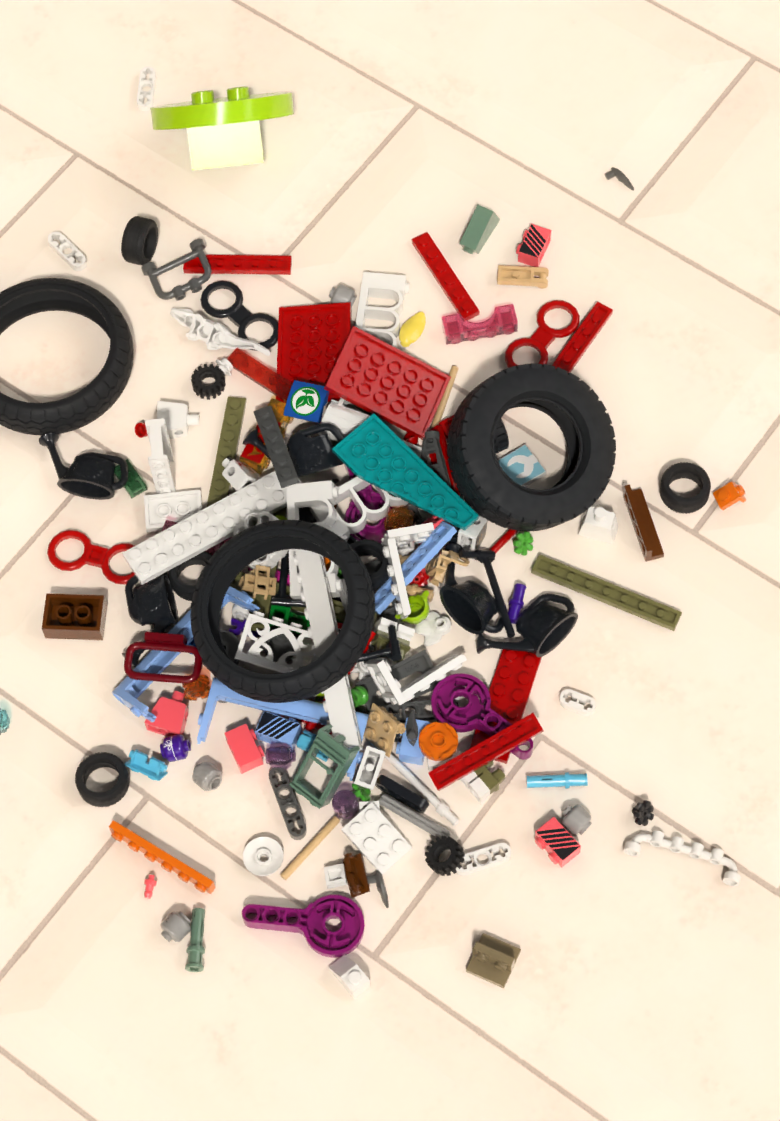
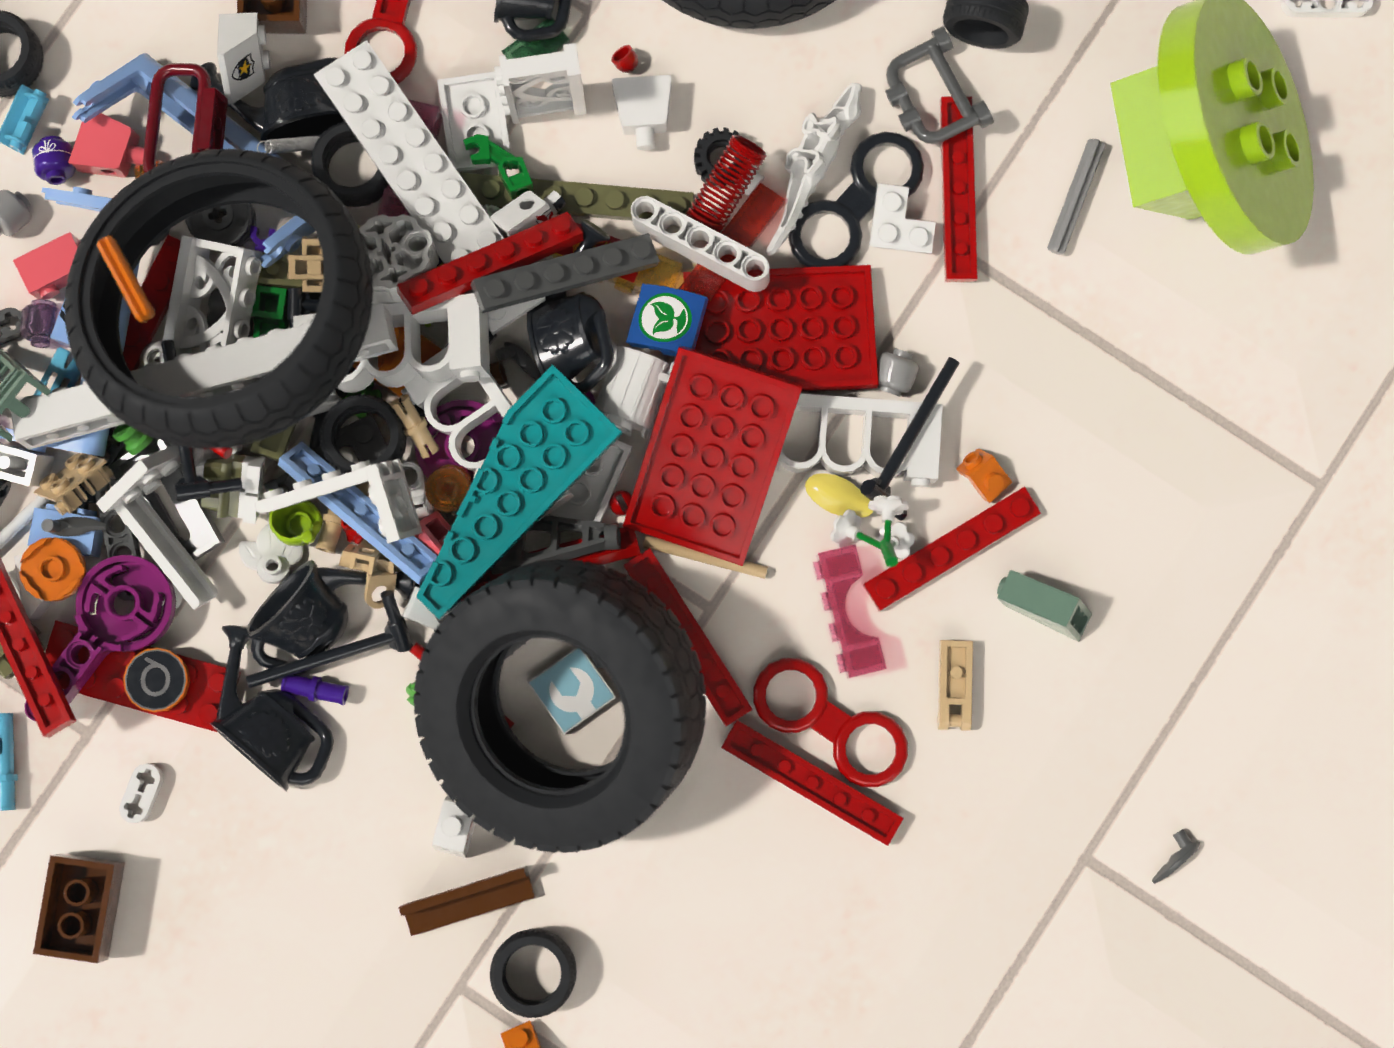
camera: 80 degrees right, 20 degrees up
(118, 630) = (241, 54): none -> white slope
(179, 606) = (289, 144): none -> white piece
(201, 489) = (491, 152): none -> green piece
(216, 353) = (746, 149): none -> red piece
(247, 209) = (1076, 196): none -> light grey axle
(255, 297) = (890, 226): none -> white plate
(259, 392) = (708, 256): none -> white beam
(267, 482) = (509, 253): none -> red plate
(270, 649) = (125, 278): none -> orange axle
(360, 535) = (415, 426): none -> tan pin
(402, 257) = (984, 474): none -> orange bracket
(409, 302) = (880, 486): none -> black bar
(438, 302) = (893, 539): none -> white plant
(508, 686) = (156, 680): none -> black tile
(534, 245) = (1018, 703): coral brick -> none
(606, 592) = (336, 839): olive plate -> none
(647, 731) = (78, 908): none -> reddish brown brick

